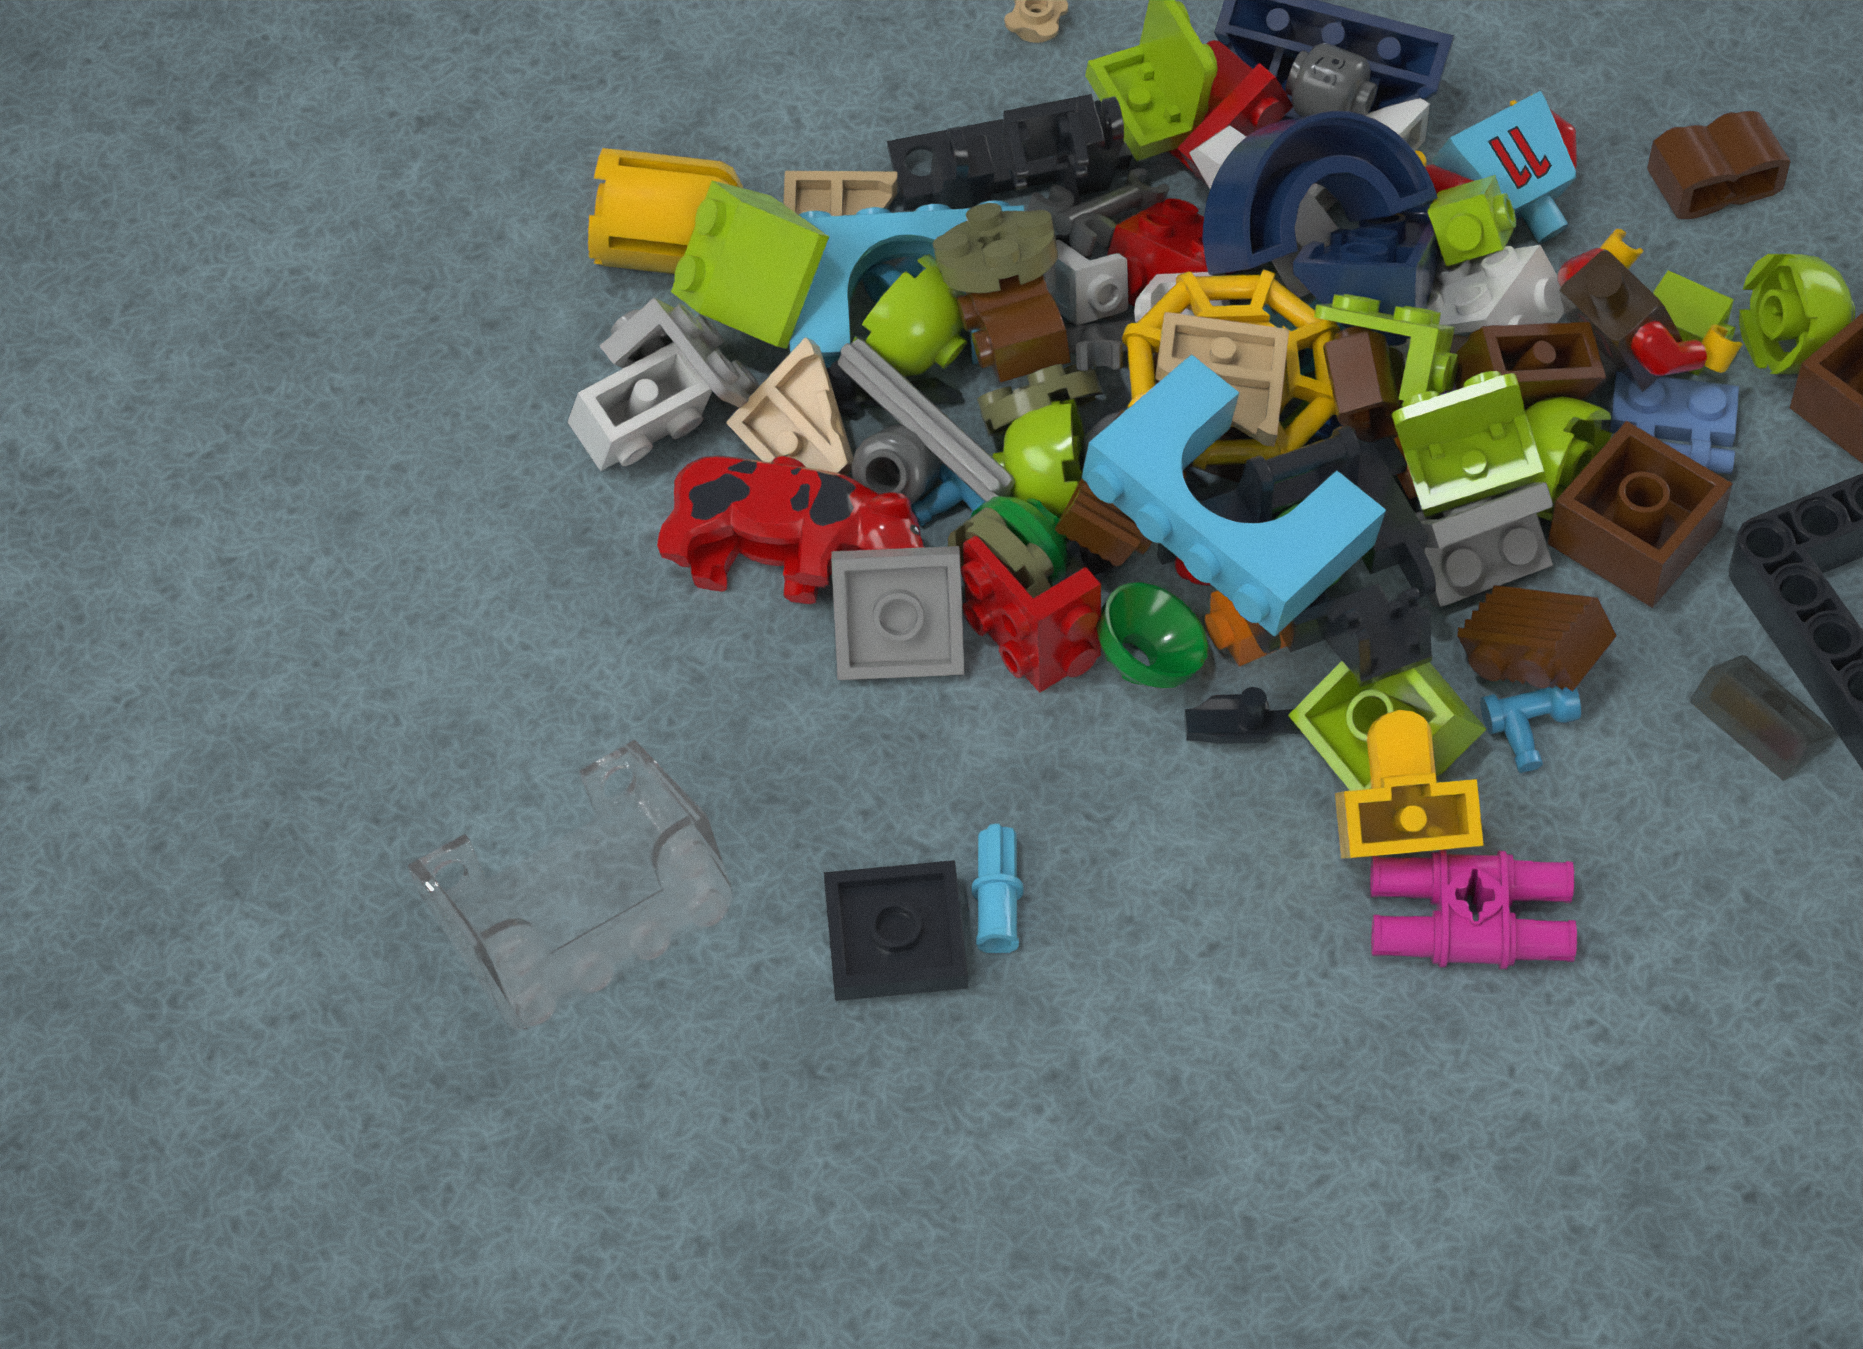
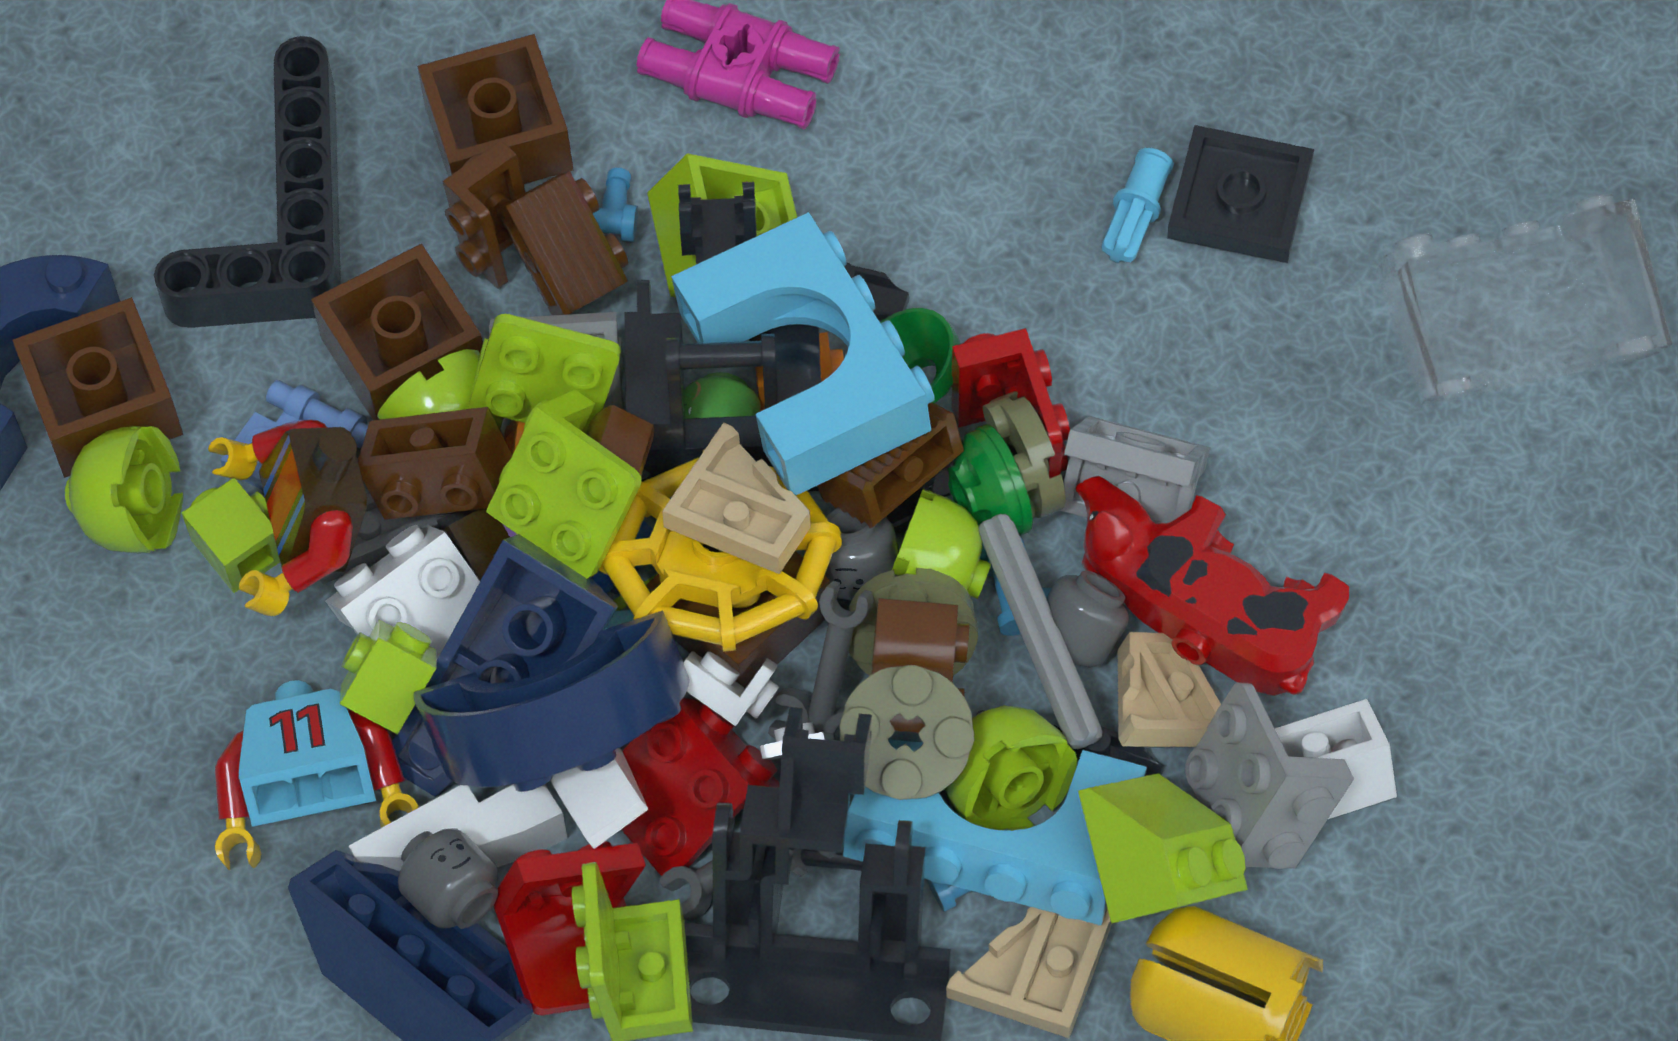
camera: 160 degrees left, 5 degrees up
(1405, 803) = (761, 119): yellow brick -> none
(1632, 608) = (472, 197): none -> reddish brown bracket
(1676, 745) = (497, 97): none -> reddish brown brick
(1718, 164) = (86, 705): reddish brown brick -> none
(1762, 716) = (390, 158): clear smoke slope -> none

